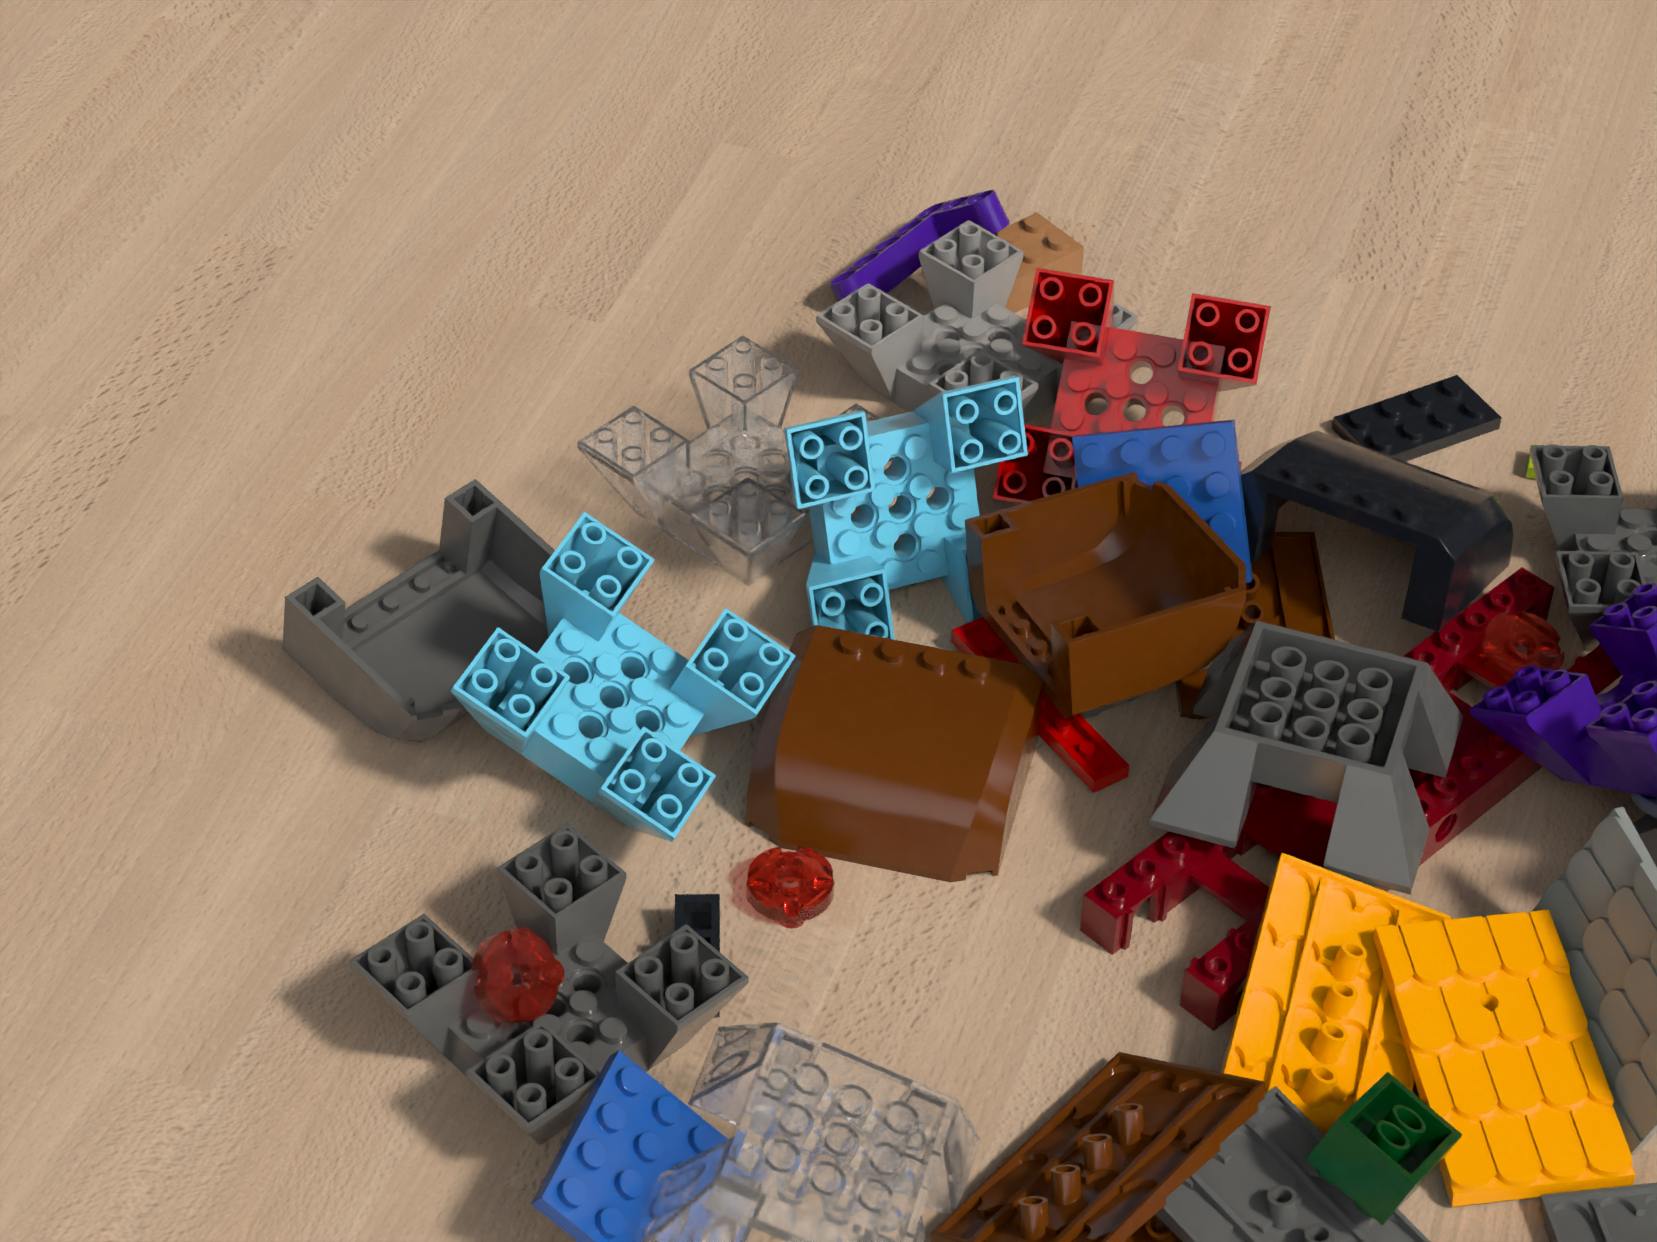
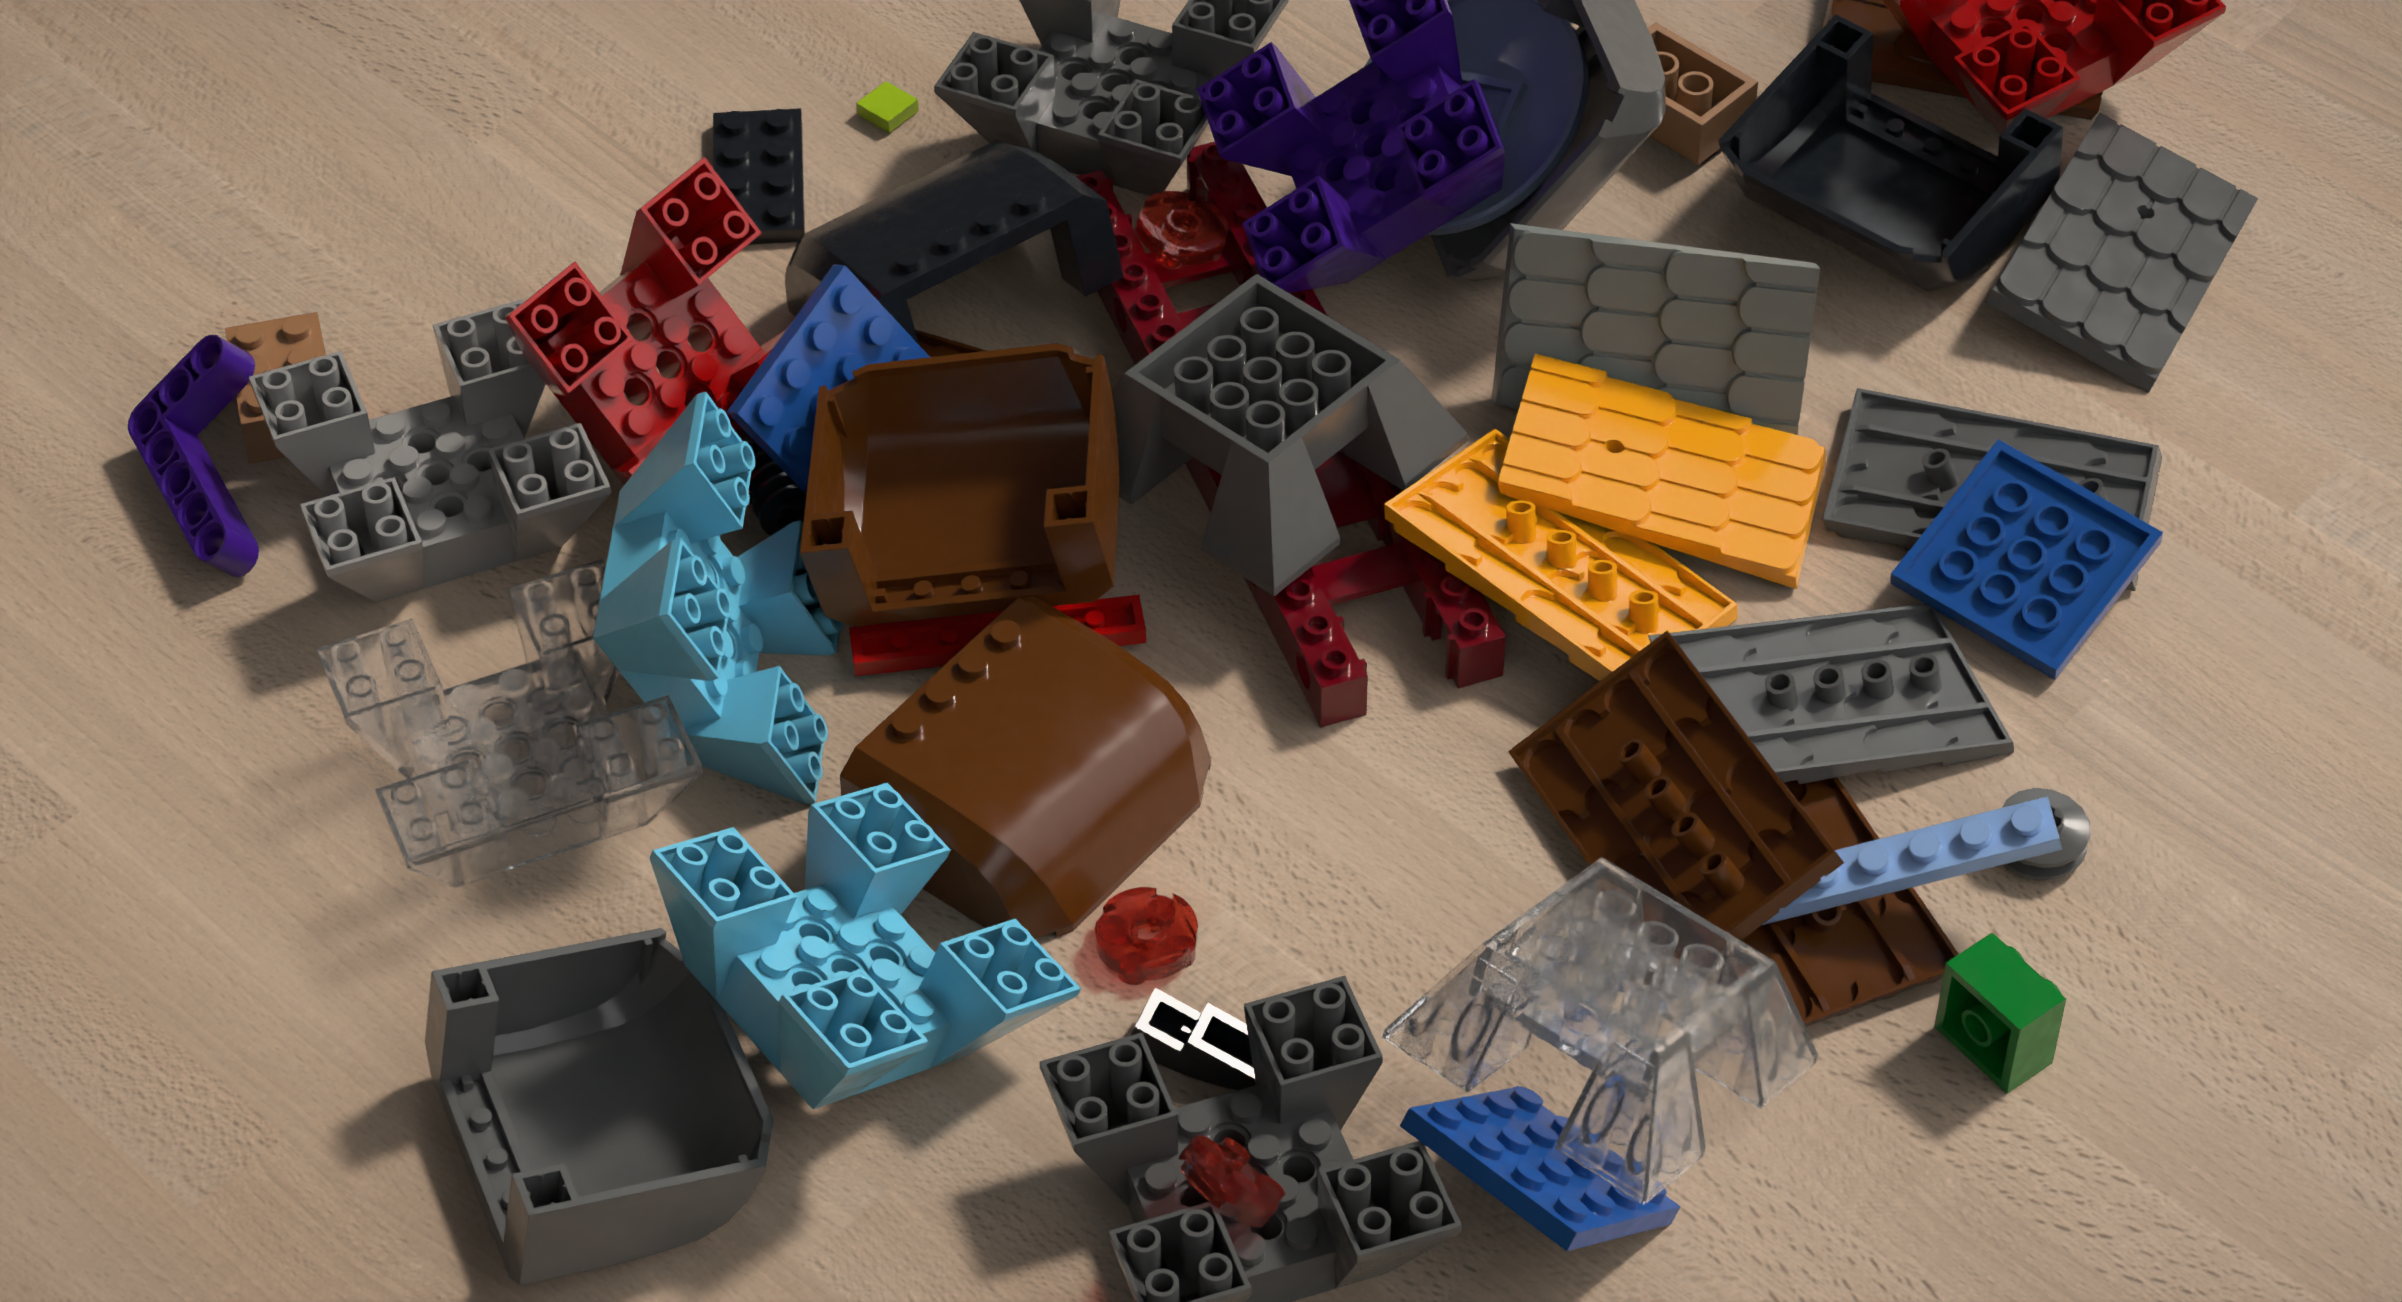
camera: 65 degrees left, 5 degrees up
(1383, 1148) = (1765, 585): dark green brick -> none

